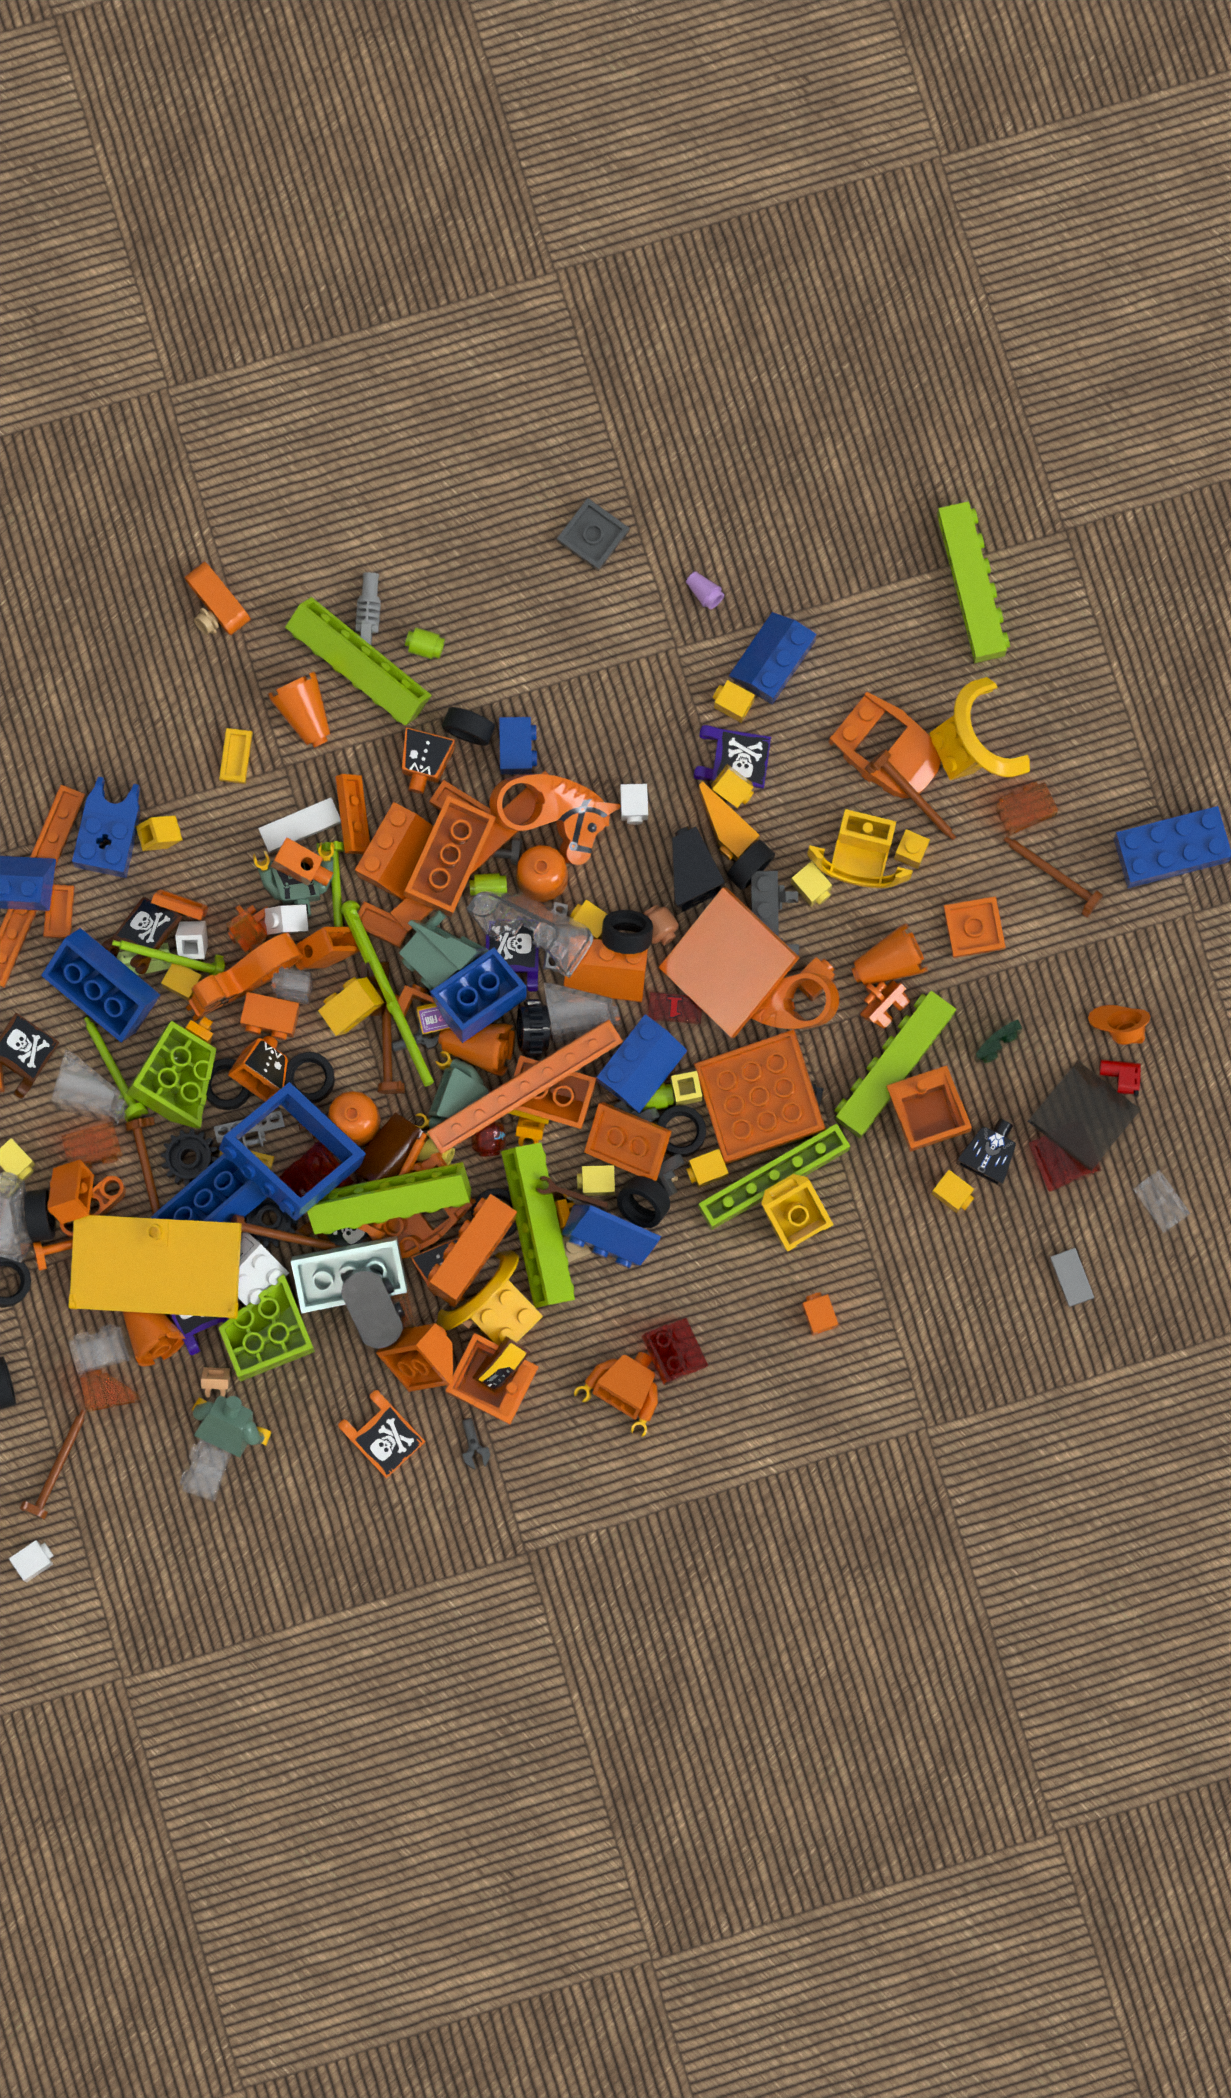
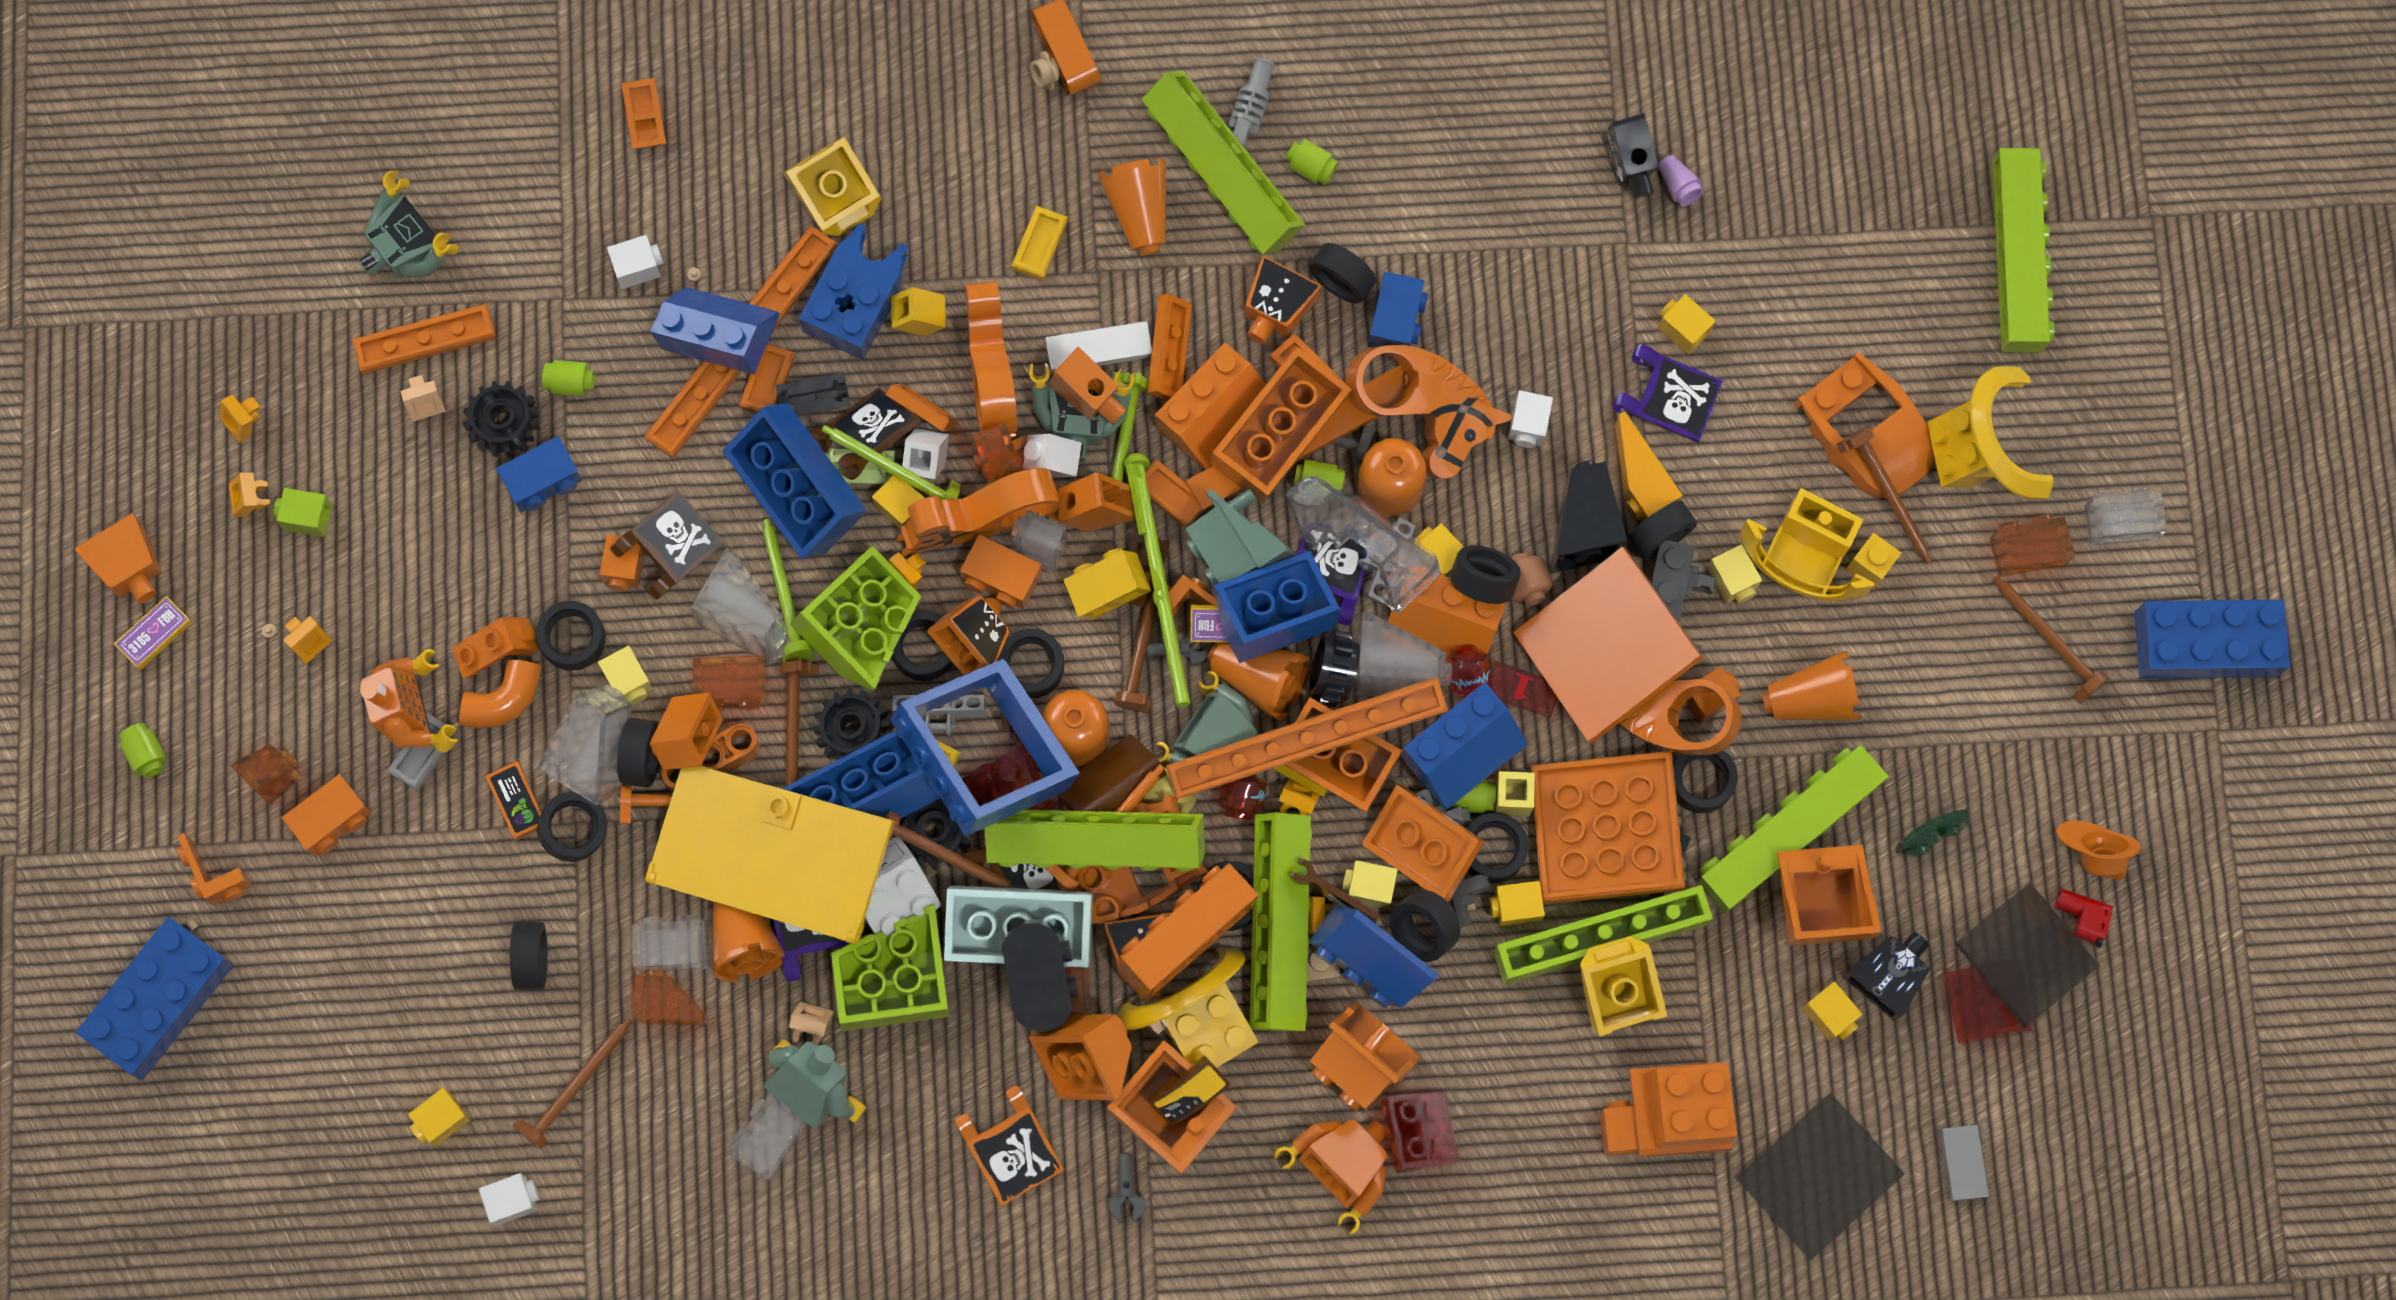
camera: 10 degrees right, 5 degrees down
(70, 752) = (834, 188): none -> yellow slope
(97, 914) = (815, 394): none -> black hinge
(222, 860) = (989, 361): none -> orange animal
(593, 534) = (1554, 80): dark grey plate -> none
(620, 1308) = (1362, 1057): none -> orange piece
(631, 1004) = (1469, 669): none -> clear red head
(662, 569) = (1629, 141): none -> black torso
(733, 786) = (1661, 428): yellow brick -> none
(773, 656) = (1749, 282): blue slope -> none
(832, 1060) = (1711, 804): none -> black tyre
(859, 1289) = (1683, 1109): none -> orange piece
(880, 999) = (1790, 742): orange hips -> none
(970, 1312) = (1820, 1176): none -> clear smoke piece
(974, 927) = (1932, 679): orange plate -> none
(1090, 769) = (2125, 517): none -> clear brick
(1161, 1201) = (2104, 1092): clear hinge -> none

